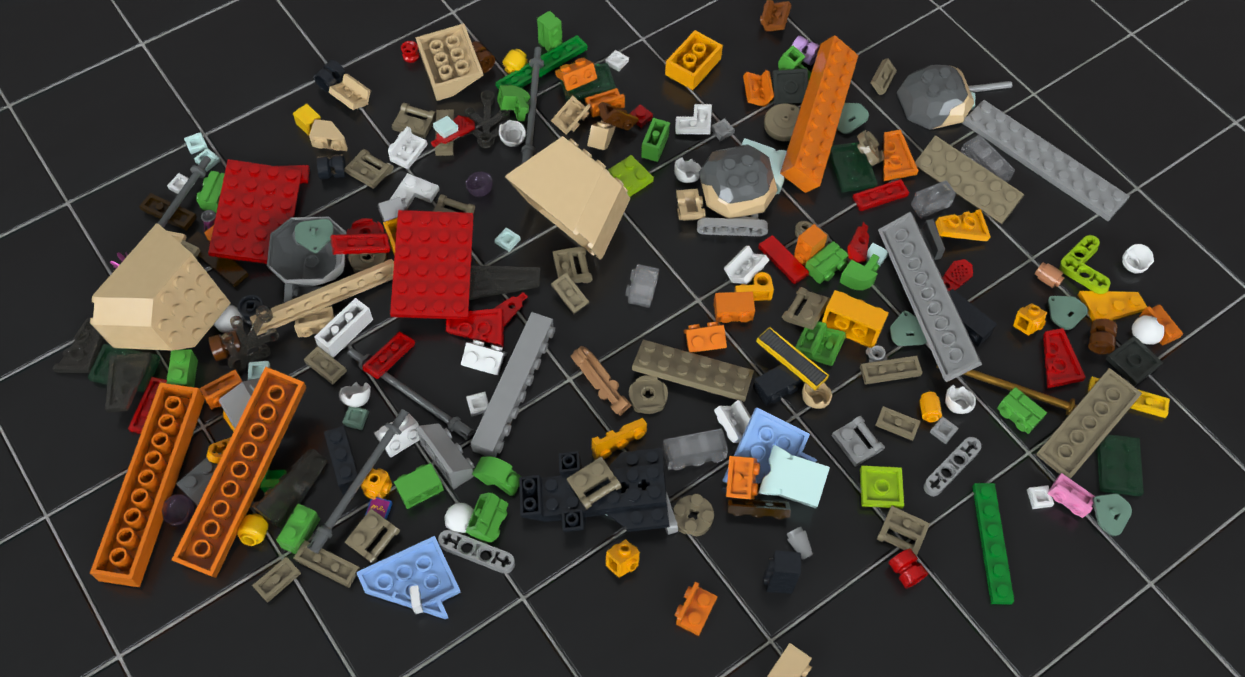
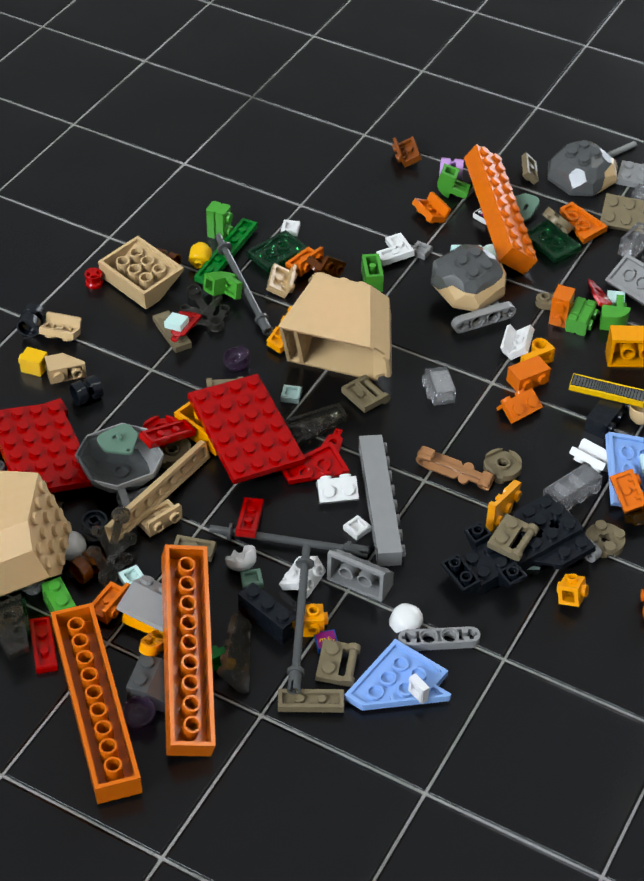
camera: 25 degrees left, 15 degrees down
(252, 529) = (224, 700): yellow head -> none
(276, 579) = (272, 731): dark tan plate -> none
(298, 528) = (266, 683): bright green brick -> none
(343, 328) = (193, 508): white brick -> none
(365, 172) = (121, 382): dark tan plate -> none
(389, 209) = (172, 401): light grey brick -> none
(406, 148) = (147, 354): white bracket -> none
(415, 187) = (173, 383): white plate -> none
(418, 126) = (136, 336): dark tan plate -> none
(418, 485) = (351, 607): bright green brick -> none
(487, 518) = (432, 605): bright green brick -> none
(497, 472) = (414, 567): bright green brick -> none
(512, 133) = (238, 310): white hair -> none
(570, 293) = (380, 412): dark tan plate -> none
(576, 73) = (266, 244): orange bracket -> none
(643, 115) = (347, 259): red plate -> none
(686, 170) = (415, 288): white hair -> none
(689, 205) = (436, 313): tan cylinder -> none
(693, 60) = (361, 204): light orange brick -> none
(693, 370) = (527, 432): dark tan plate -> none
(781, 120) = (470, 227): dark tan wheel -> none
(783, 259) = (544, 327): red tile -> none
(789, 86) = (459, 198): pearl dark grey plate -> none
(811, 310) = (594, 355): dark tan plate -> none
(821, 343) = (619, 373): bright green slope -> none
(880, 195) = (588, 255): red tile -> none

